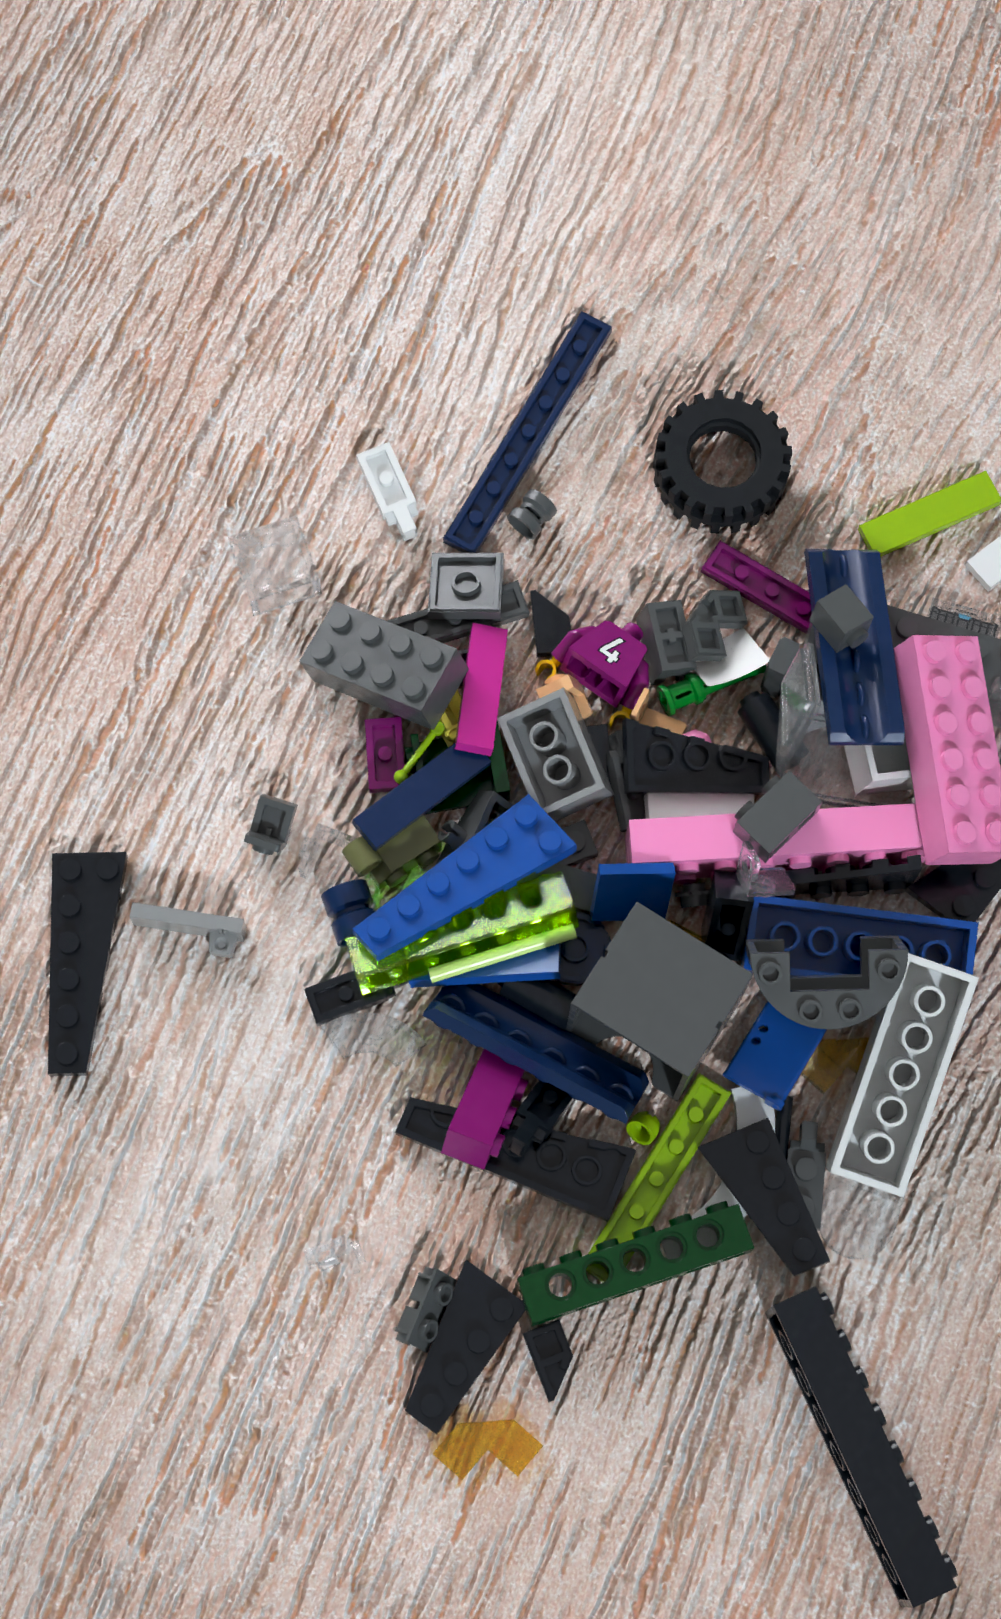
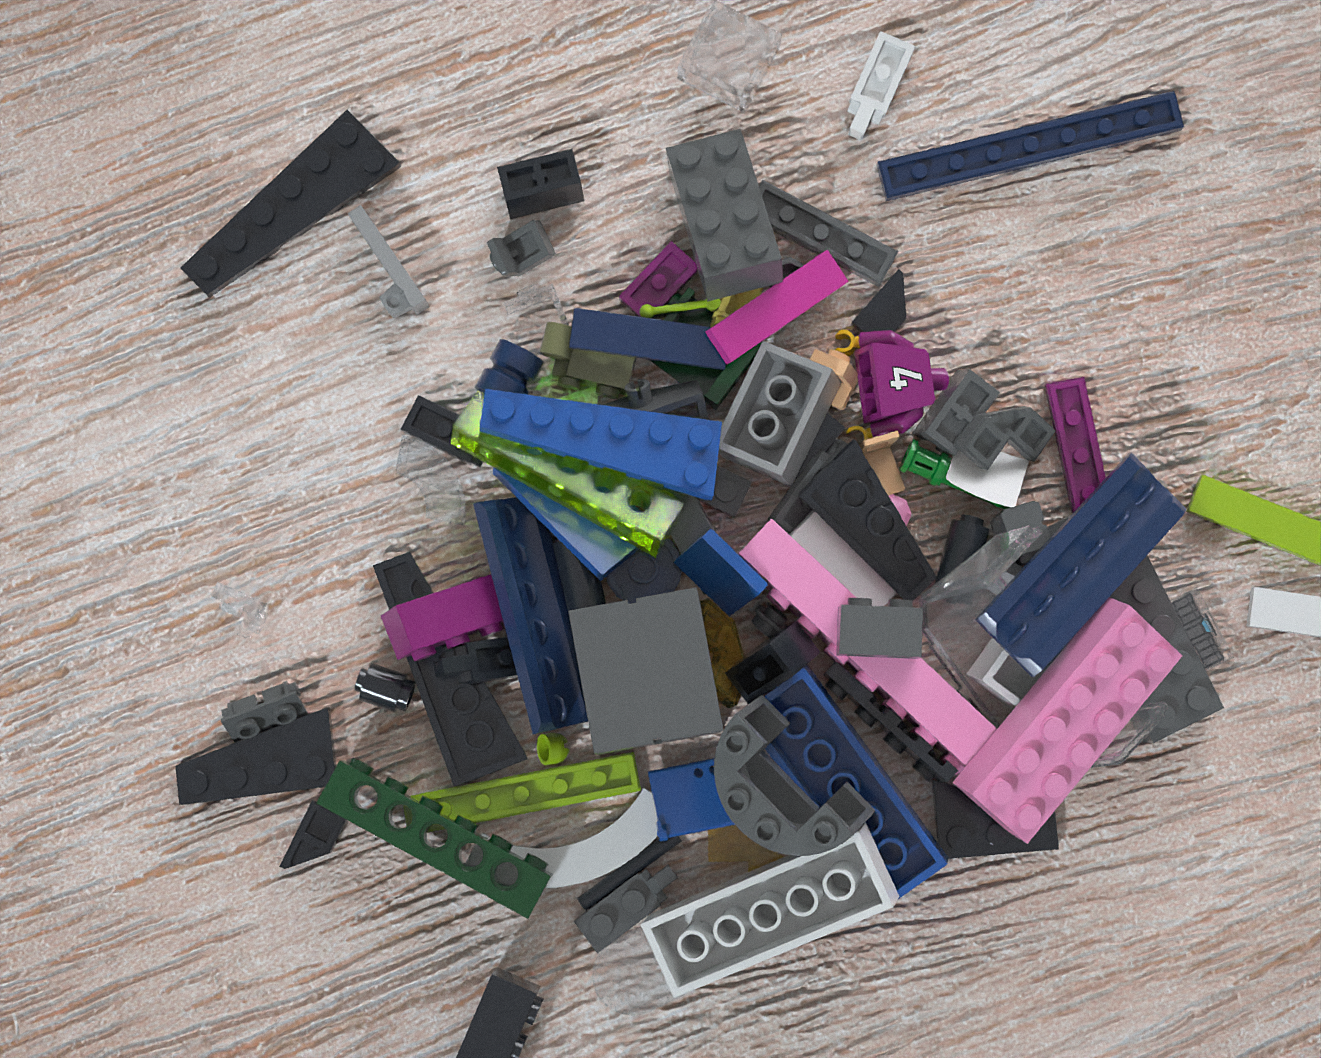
camera: 50 degrees right, 10 degrees up
(238, 769) = (541, 184): none -> black hinge
(466, 586) = (854, 216): tile -> none
(491, 1204) = (385, 688): none -> black brick
(502, 953) = (578, 518): yellowish green bar -> none
(502, 1438) = (221, 855): clear yellow tile -> none
(532, 514) = (965, 208): dark grey wheel -> none
(711, 503) = (1117, 357): black tyre -> none
(761, 881) = (822, 667): clear bracket -> none
(763, 1184) = (588, 880): black wing -> none
(842, 619) = (1090, 536): dark grey brick -> none

